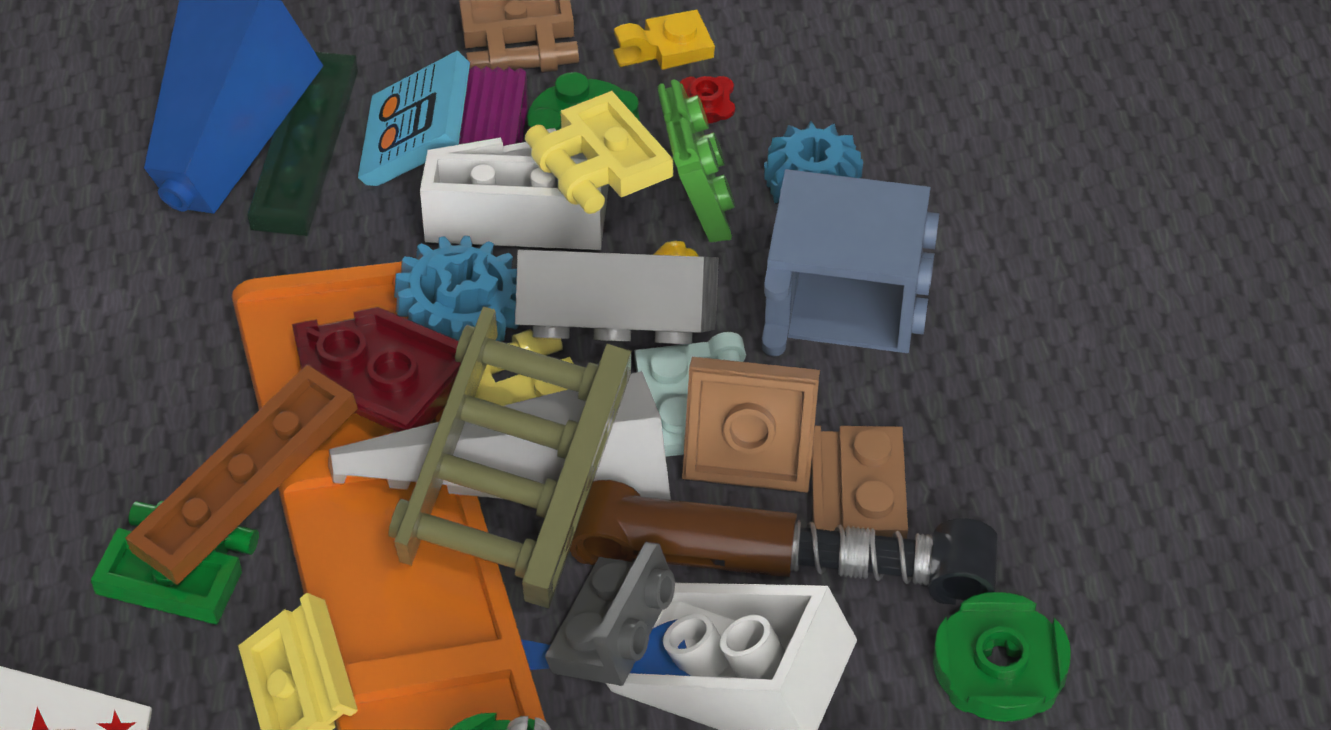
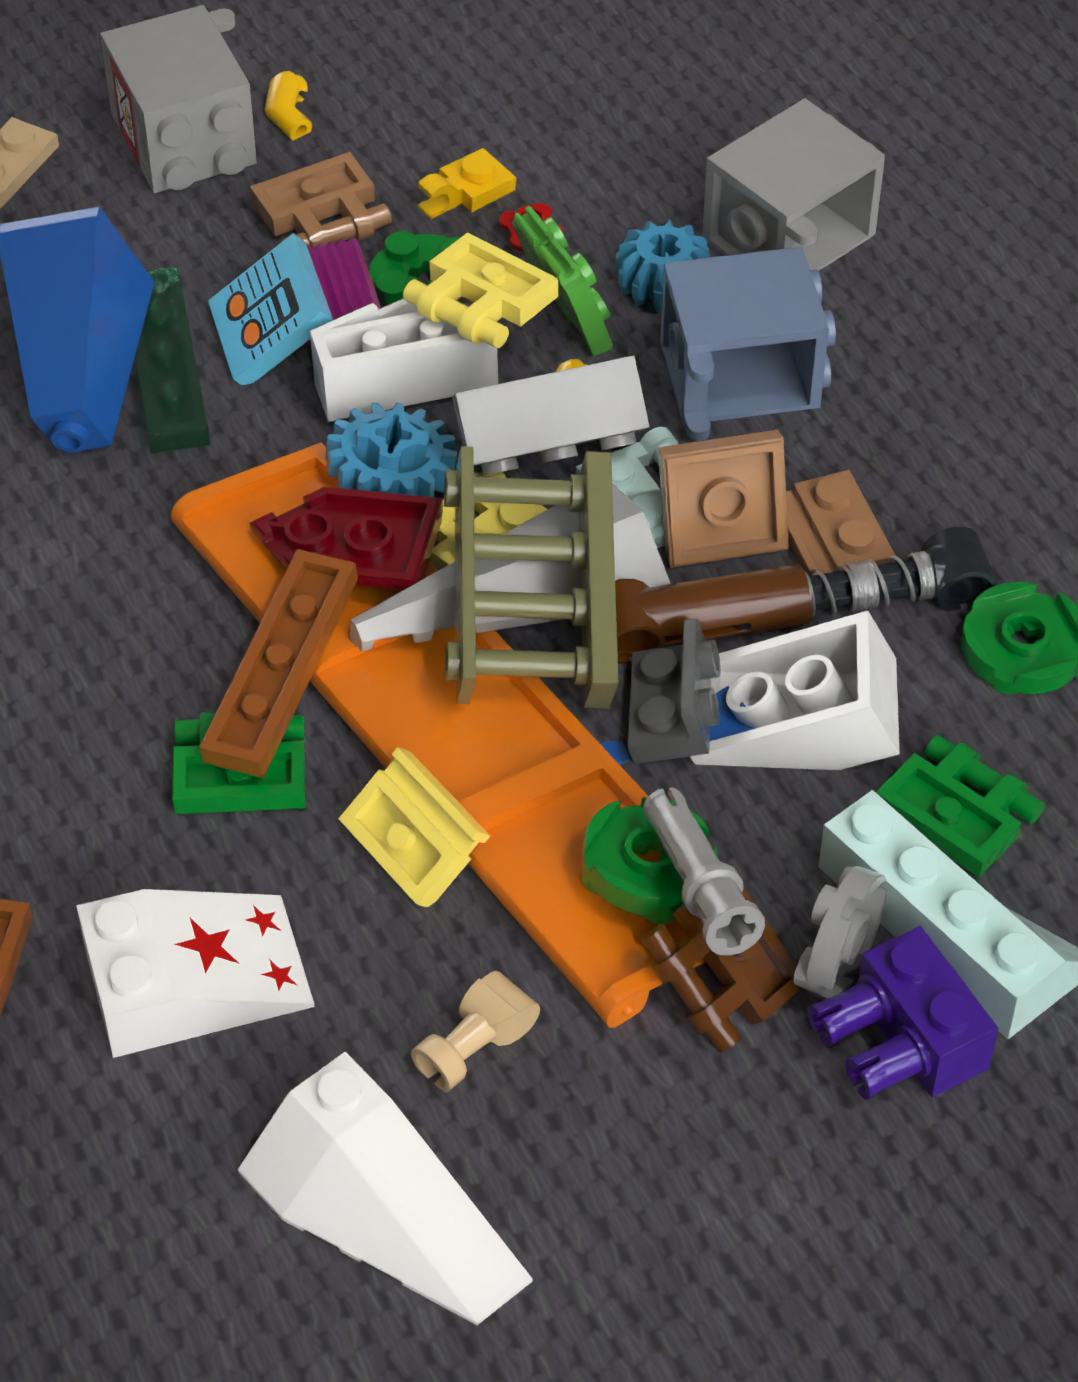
camera: 20 degrees left, 0 degrees up
(966, 128) = (794, 186): none -> light grey container

